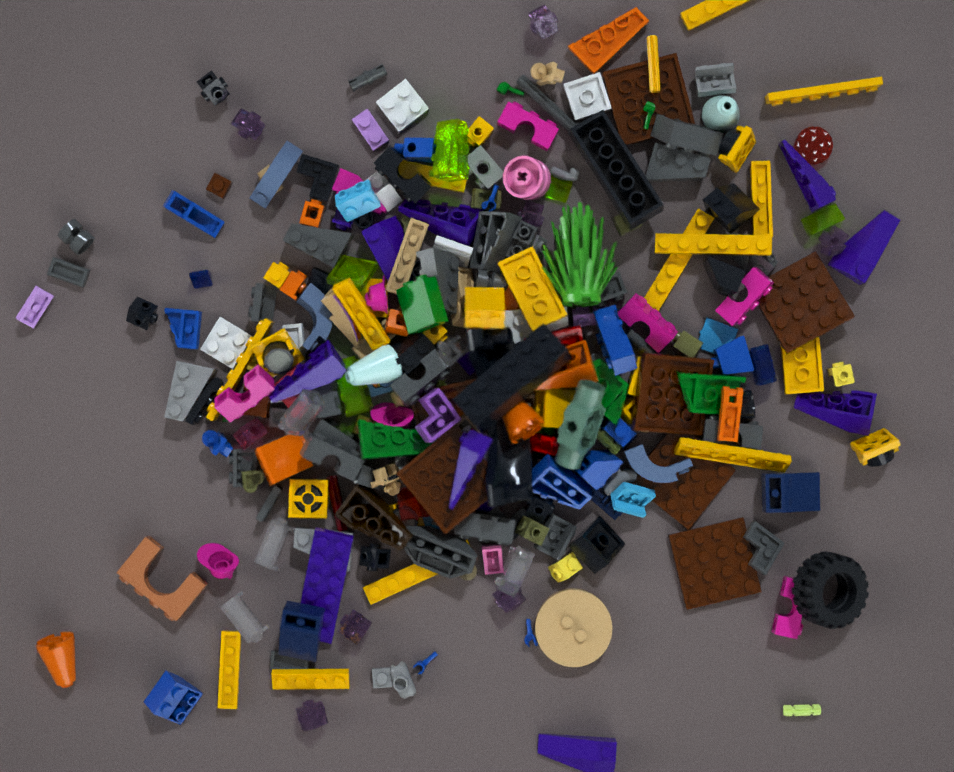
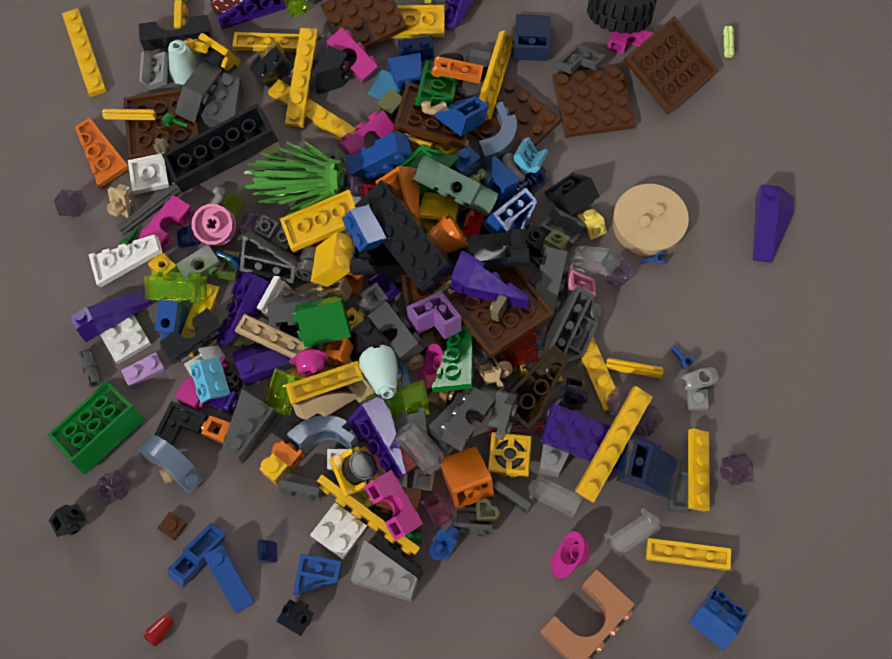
camera: 85 degrees left, 20 degrees down
(122, 190) = (156, 632): none -> red cone
(173, 247) = (229, 578): none -> blue slope
(307, 95) = (95, 427): none -> green slope
(320, 597) = (613, 444): none -> yellow plate
(342, 489) = (502, 411): none -> dark grey bracket
(365, 603) = (616, 400): none -> brick
(409, 617) = (634, 368): none -> yellow axle
(422, 81) = (105, 315): none -> dark purple wedge
(444, 478) = (498, 307): none -> dark tan plate
(481, 84) = (118, 261): none -> white wing
(512, 337) = (363, 228): none -> brick
(518, 148) = (187, 238): none -> clear blue slope
(615, 106) = (161, 146): none -> dark tan plate
(669, 424) = (464, 115): none -> blue slope
(673, 392) = (428, 109): none -> tan arm
(738, 124) = (197, 45): none -> yellow axle
(758, 646) = (670, 65): none -> reddish brown plate
(769, 118) = (154, 37): none -> black arch

